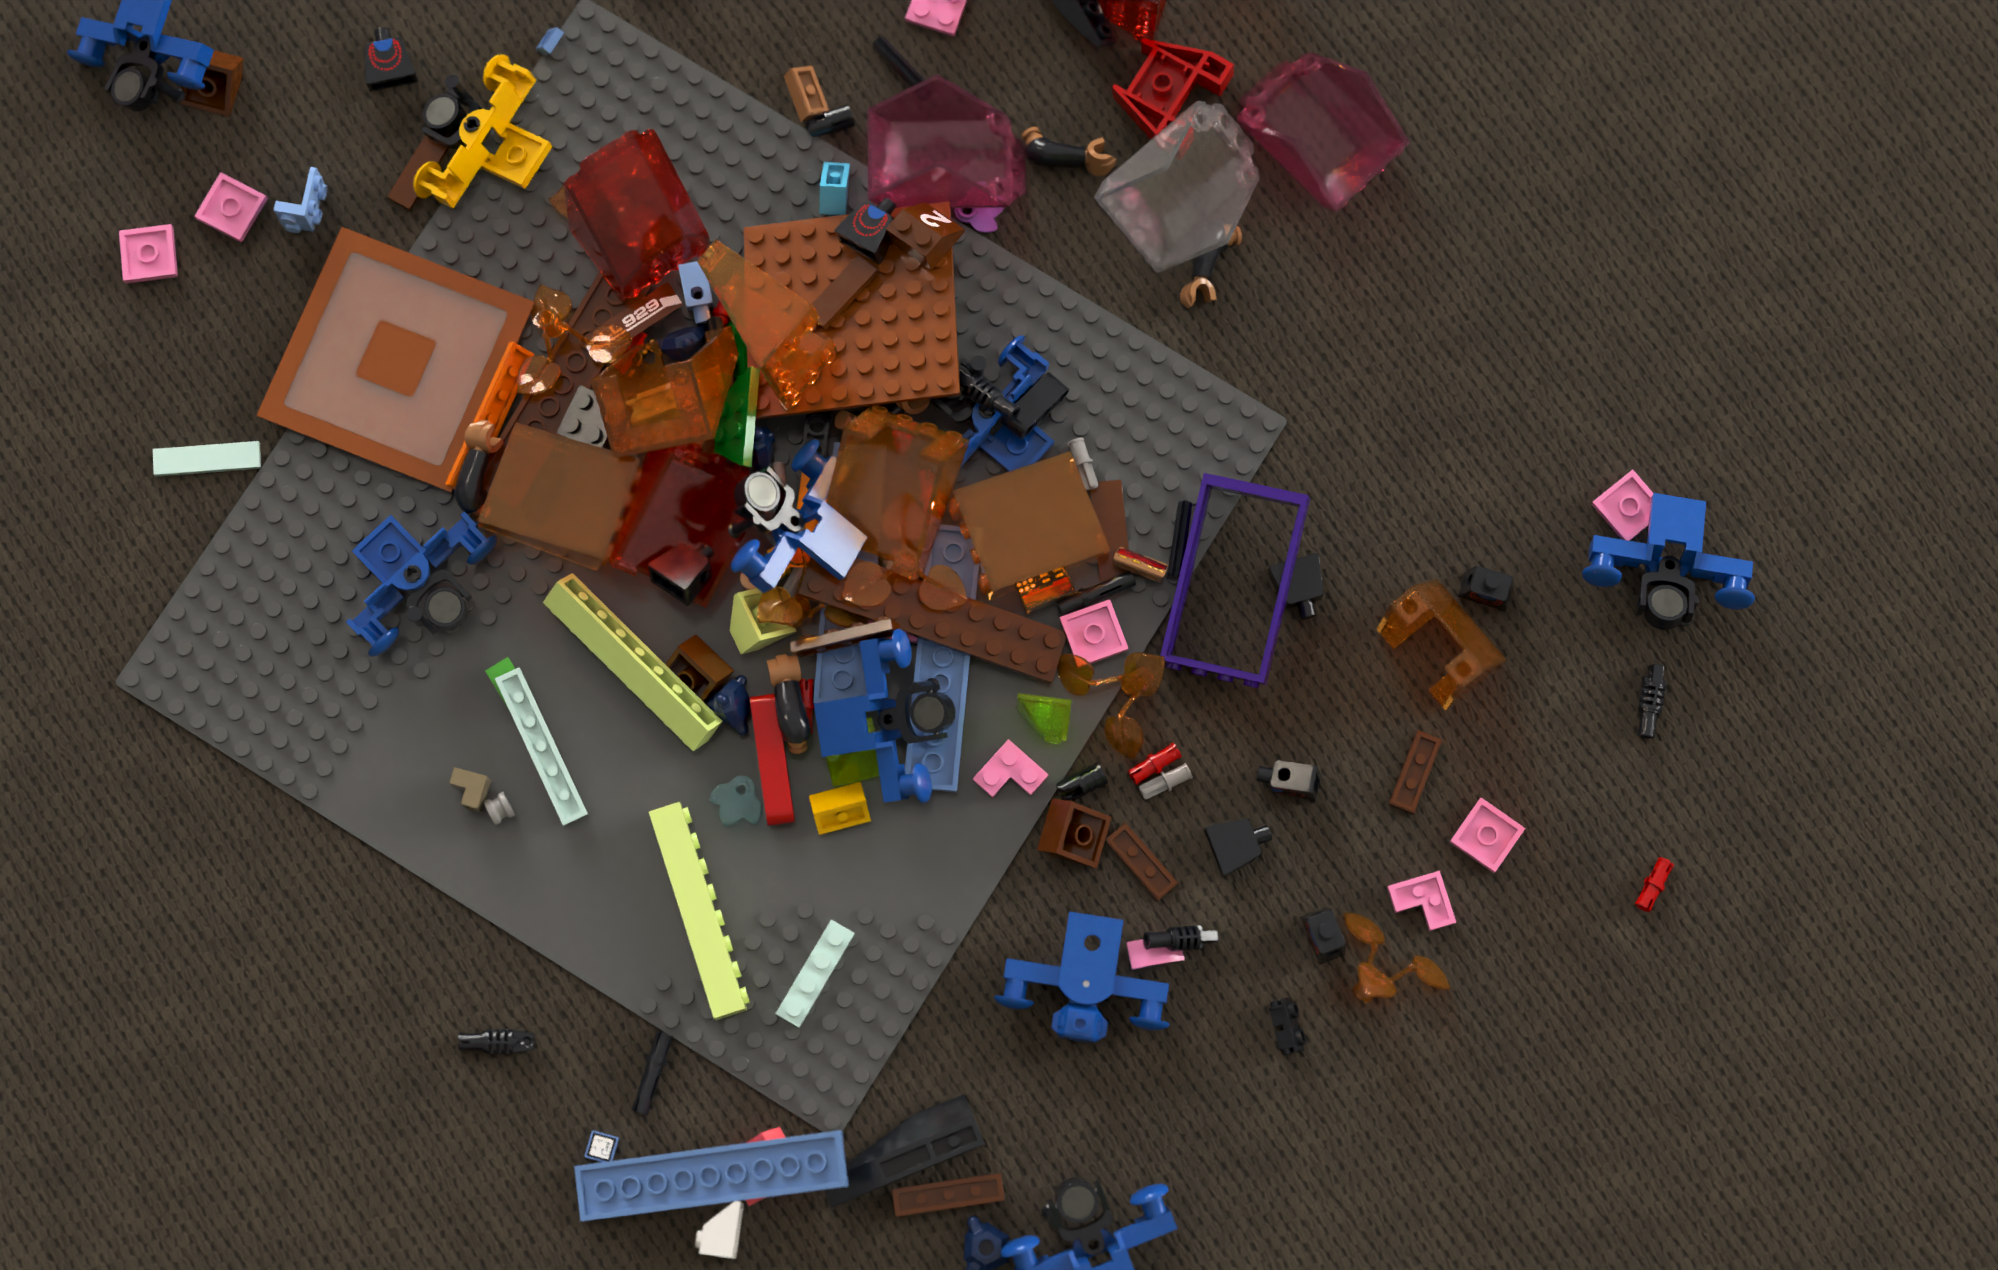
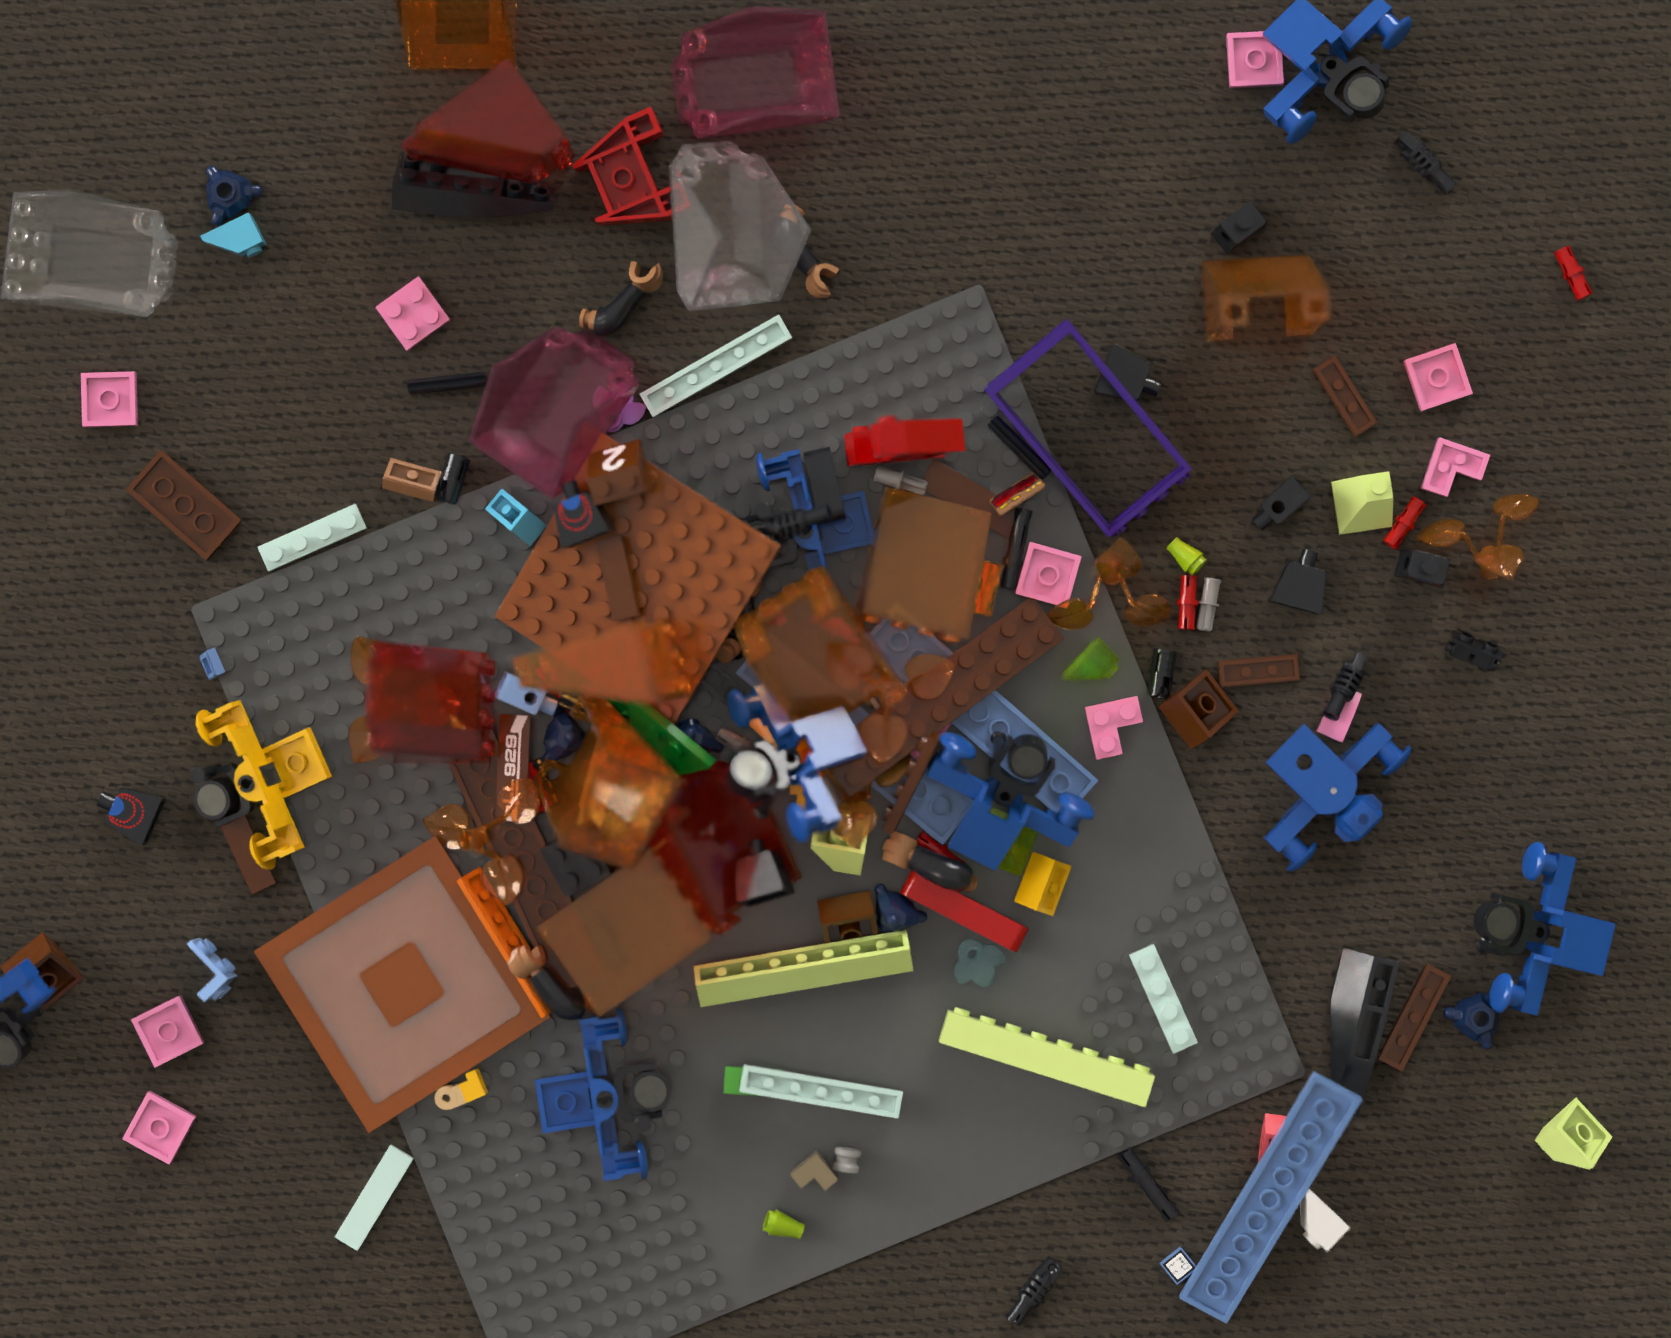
camera: 55 degrees left, 10 degrees up
(338, 464) = (452, 1096): none -> leg
(408, 793) = (780, 1224): none -> lime cone
(705, 49) = (312, 537): none -> light aqua plate
(1068, 260) = (716, 366): none -> light aqua plate
(1116, 438) = (903, 441): none -> red wedge
(1191, 738) = (1188, 558): none -> lime cone
(1340, 847) = (1363, 502): none -> yellowish green slope
(1349, 893) = (1404, 523): none -> red pin

